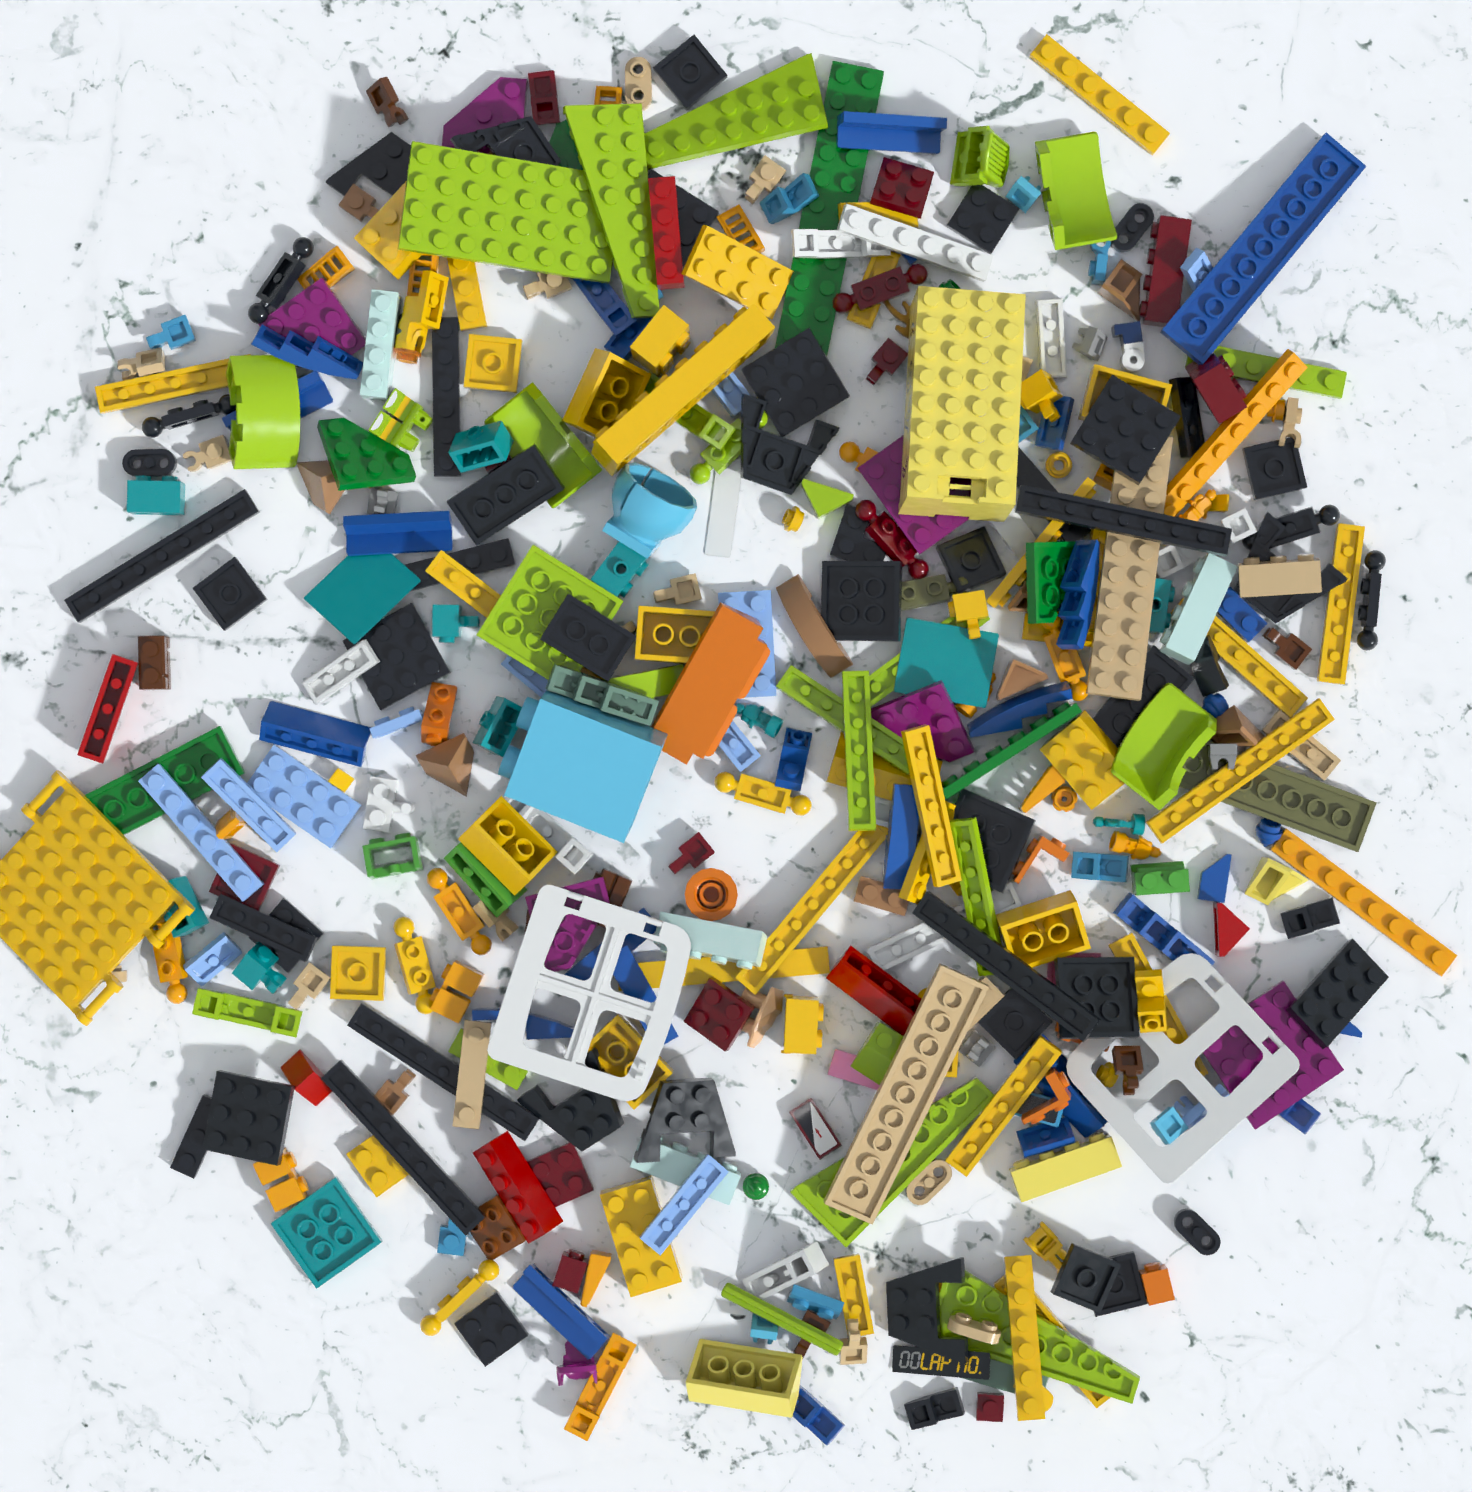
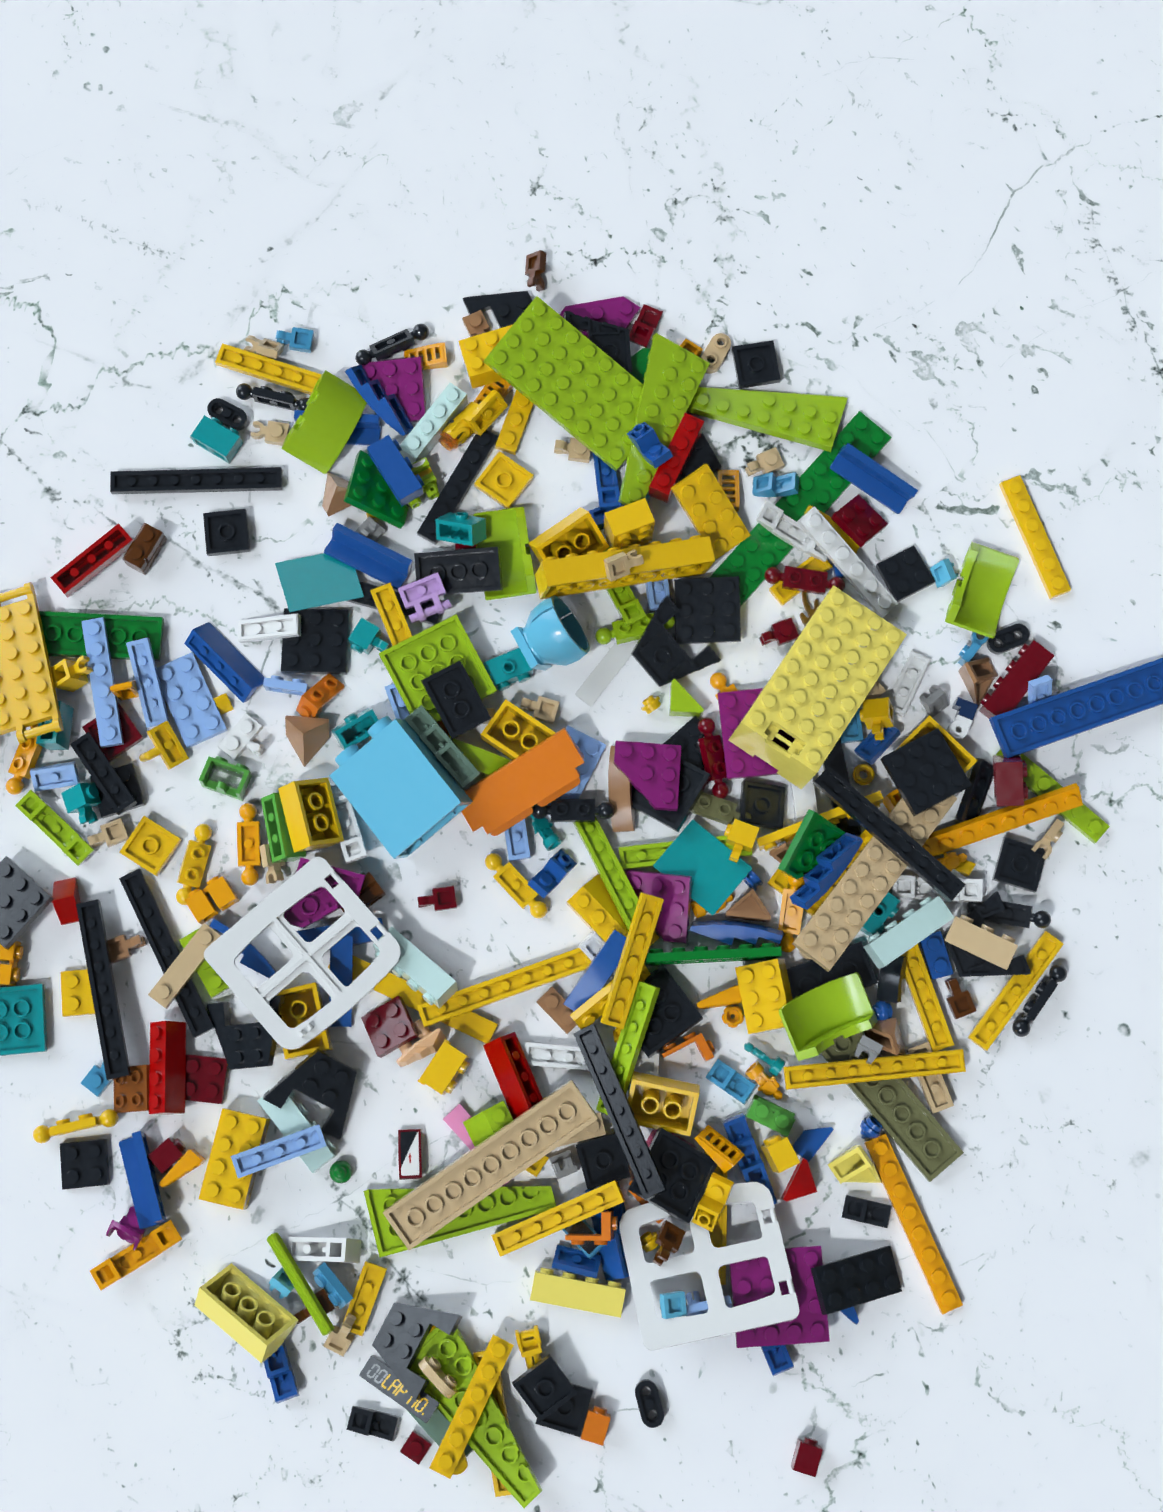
camera: 30 degrees right, 10 degrees down
(162, 843) = (71, 674): none -> yellow brick
(310, 860) = (165, 745): none -> yellow plate
(373, 423) = (396, 470): none -> blue brick
(479, 541) = (422, 591): none -> lavender plate
(631, 238) = (649, 445): none -> blue slope
(680, 396) = (620, 564): none -> tan plate
(711, 894) = (435, 935): orange piece -> none
(780, 680) = (574, 810): none -> black plate
(836, 592) = (651, 770): none -> magenta plate
(858, 751) = (602, 891): lime plate -> none
(930, 1182) = (470, 1244): tan plate -> none
(980, 158) = (926, 531): lime piece -> none
(1006, 646) = (752, 880): none -> blue bush
(1142, 942) = (724, 1158): none -> light orange slope
(1191, 914) = (779, 1153): none -> yellow brick
(1277, 411) = (1043, 824): light orange plate -> none
(1381, 1192) = (806, 1456): none -> dark red brick

